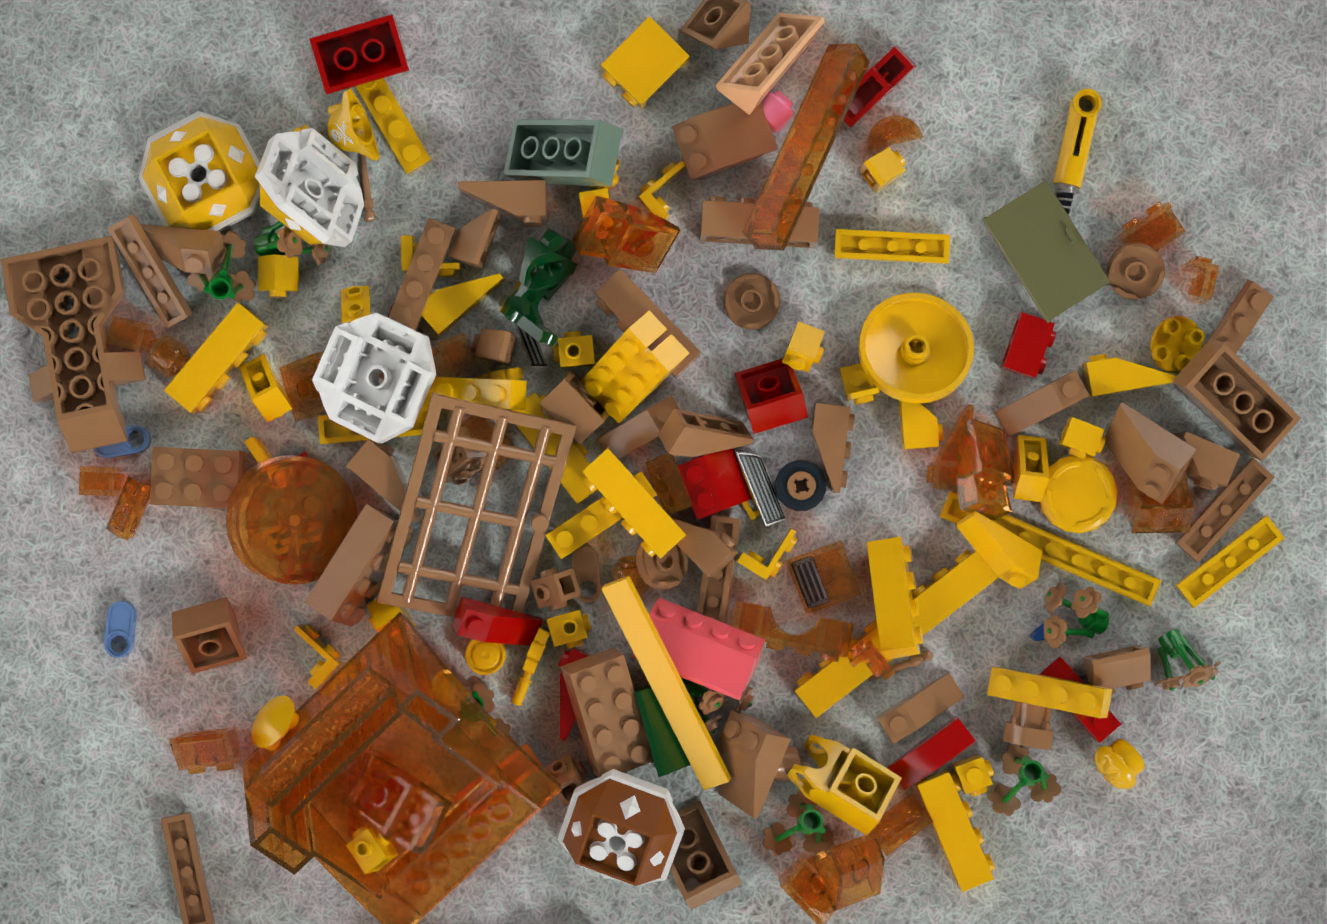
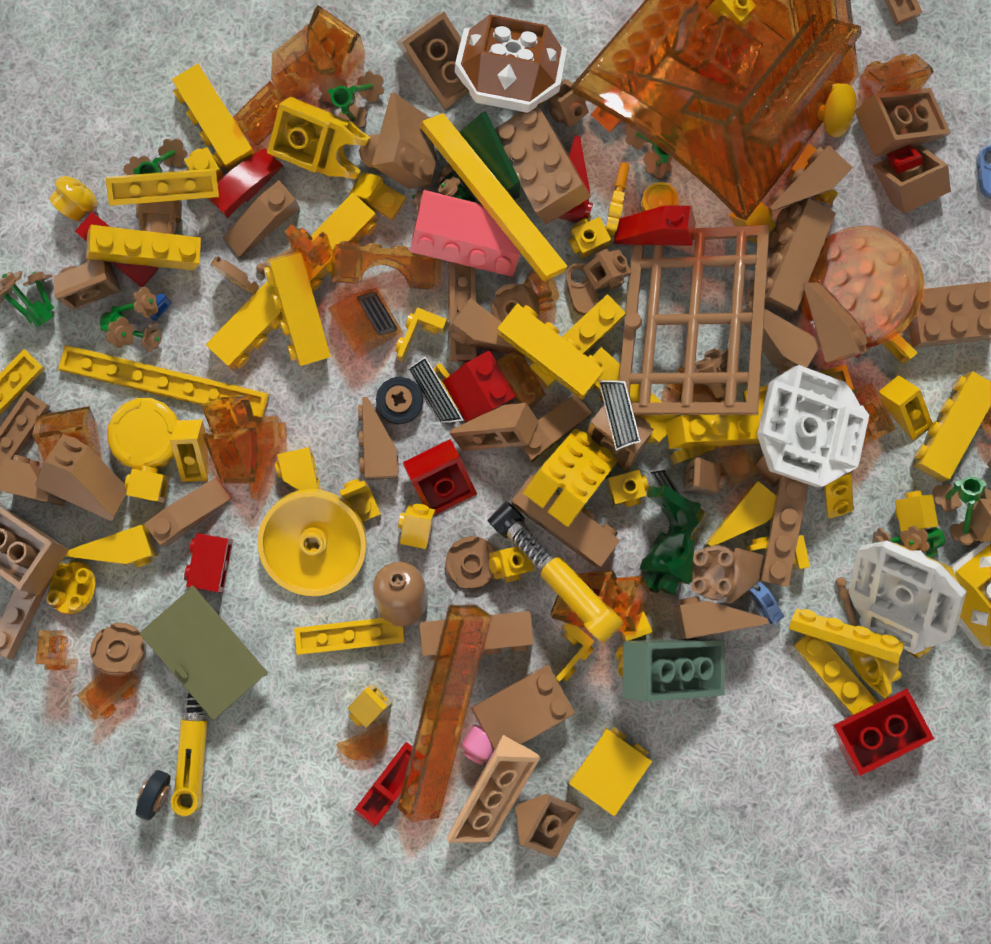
camera: 175 degrees right, 5 degrees down
(206, 700) = (901, 120): none -> medium nougat slope
(214, 655) = (904, 159): none -> red tile
(318, 640) = (821, 176): none -> medium nougat slope
(329, 476) = (836, 329): none -> medium nougat slope
(377, 158) = (845, 635): none -> yellow plate
(452, 204) = (766, 604): none -> medium blue piece
(503, 242) = (715, 572): none -> medium nougat dish
(572, 424) = (619, 413): none -> sticker
(633, 214) = (557, 573): none -> yellow piece
(711, 292) = (509, 564): none -> yellow brick
(789, 715) = (377, 195): none -> yellow slope
(829, 267) = (400, 593): none -> medium nougat cylinder
(956, 647) = (234, 275): none -> medium nougat tile
(1002, 550) = (204, 368): yellow slope -> none
(1019, 751) = (161, 187): none -> yellow plate
(1118, 115) = (153, 795): none -> black wheel

